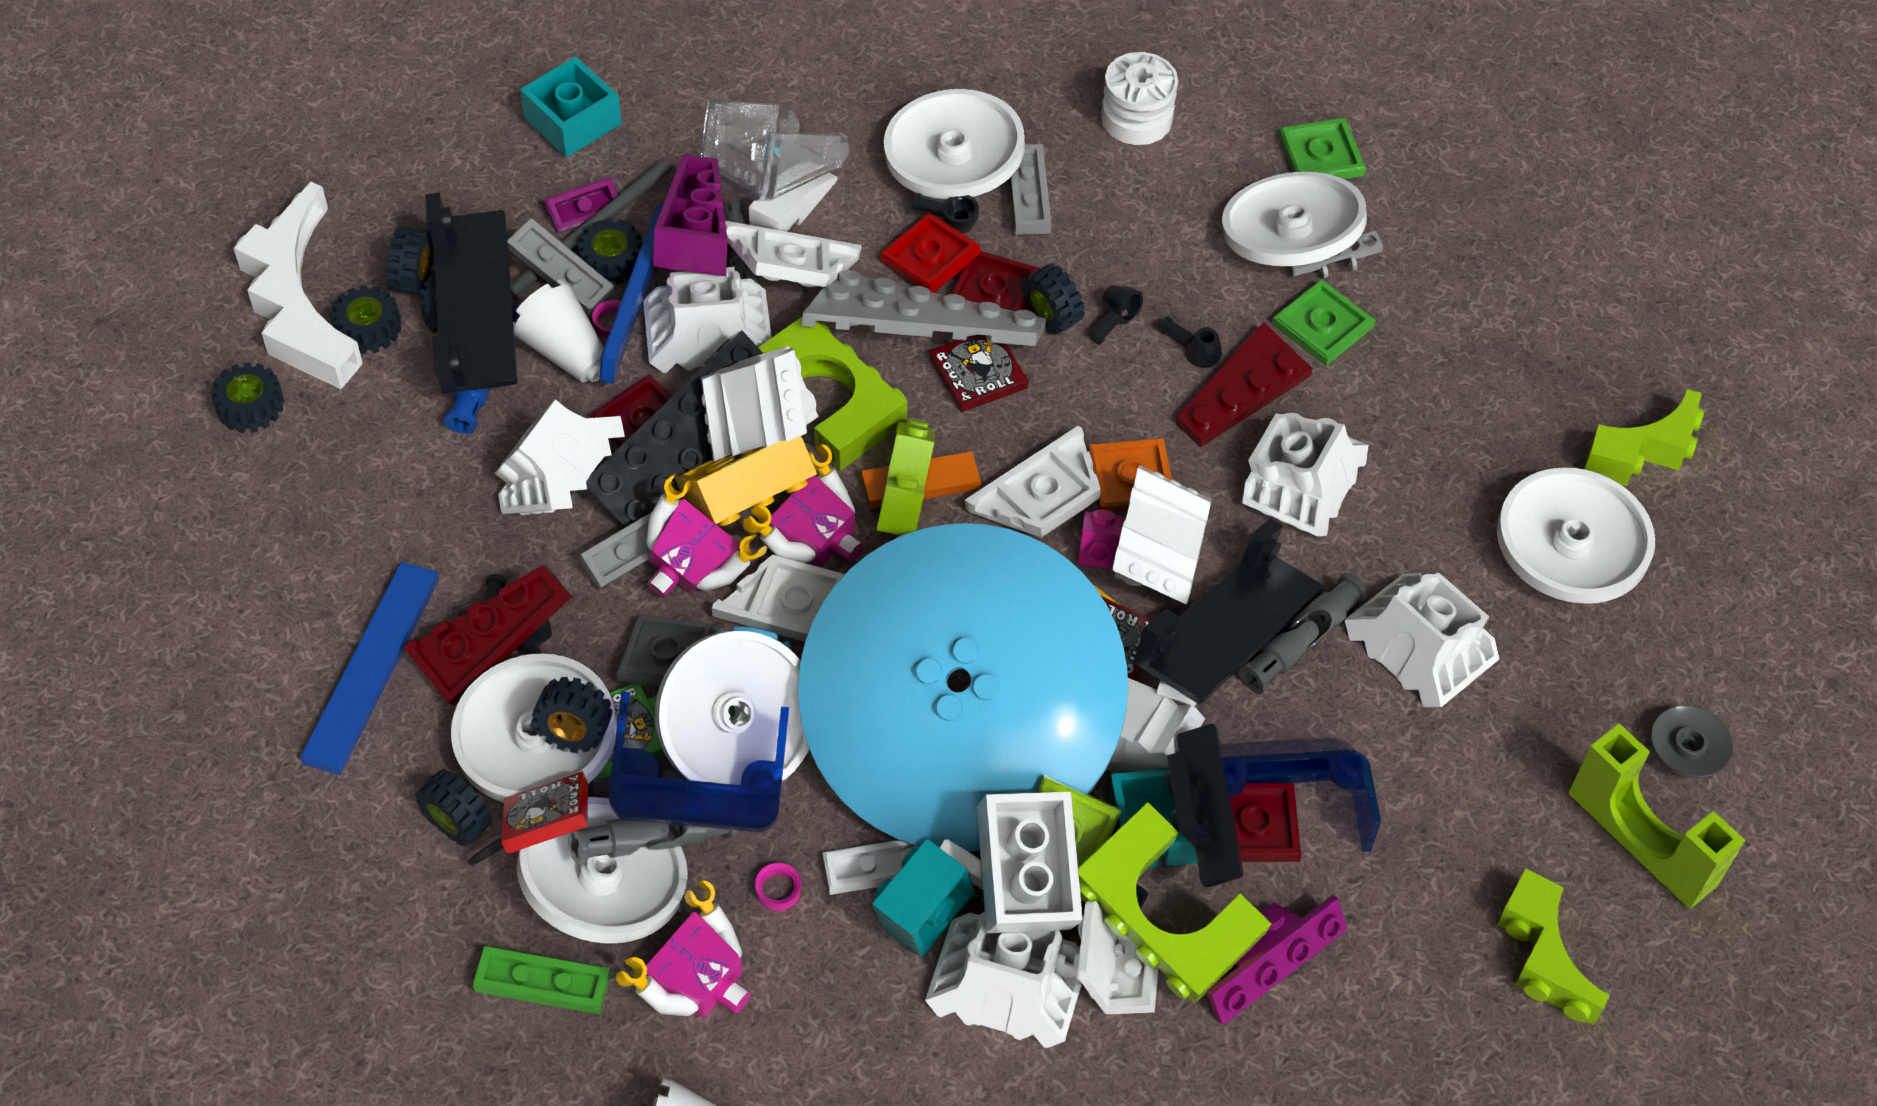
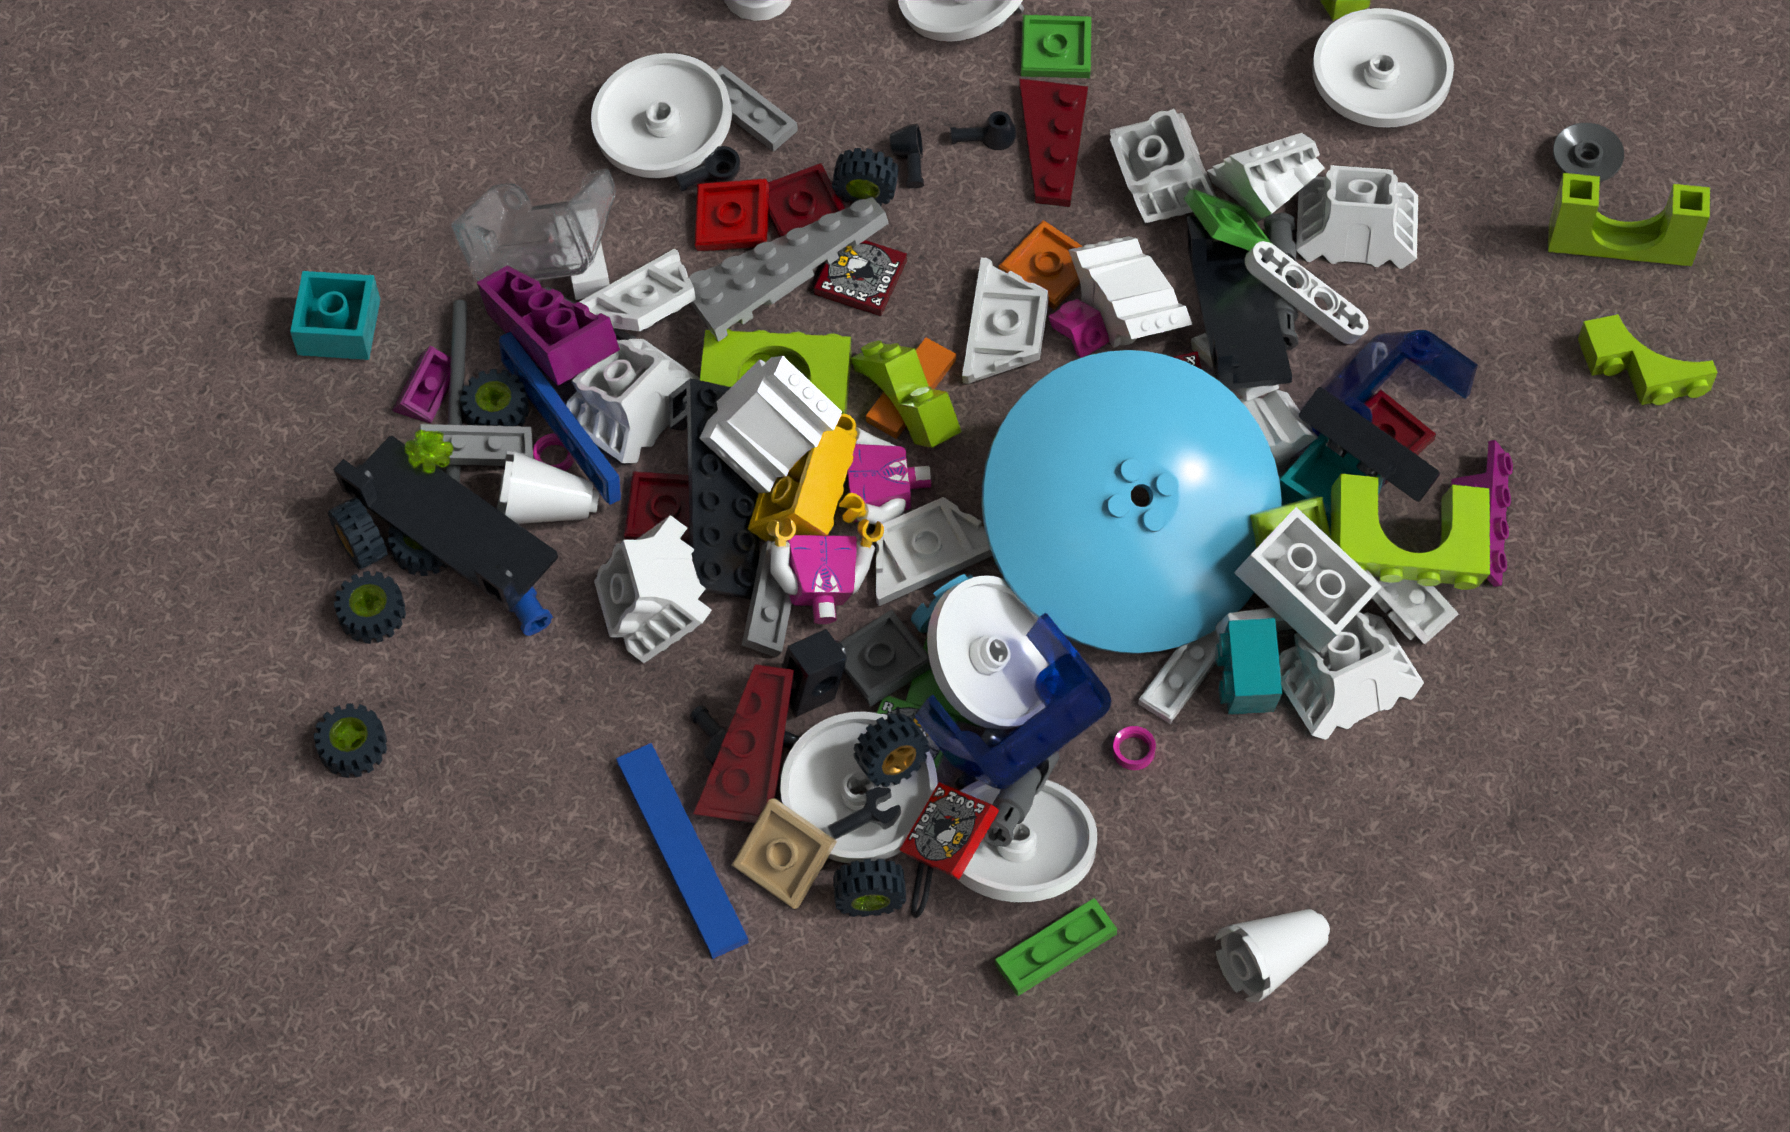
camera: 40 degrees left, 5 degrees up
(295, 328) = (328, 657): white arch -> none
(428, 729) = (784, 853): none -> tan tile
(512, 751) = (867, 814): none -> black bar
(513, 238) = (429, 450): none -> clear neon green plant
(595, 614) = (817, 671): none -> black brick
(694, 965) = (1146, 843): torso -> none
(1300, 655) = (1308, 289): none -> white beam
(1301, 549) = (1225, 220): none -> bright green tile
(1375, 536) = (1268, 174): none -> white slope

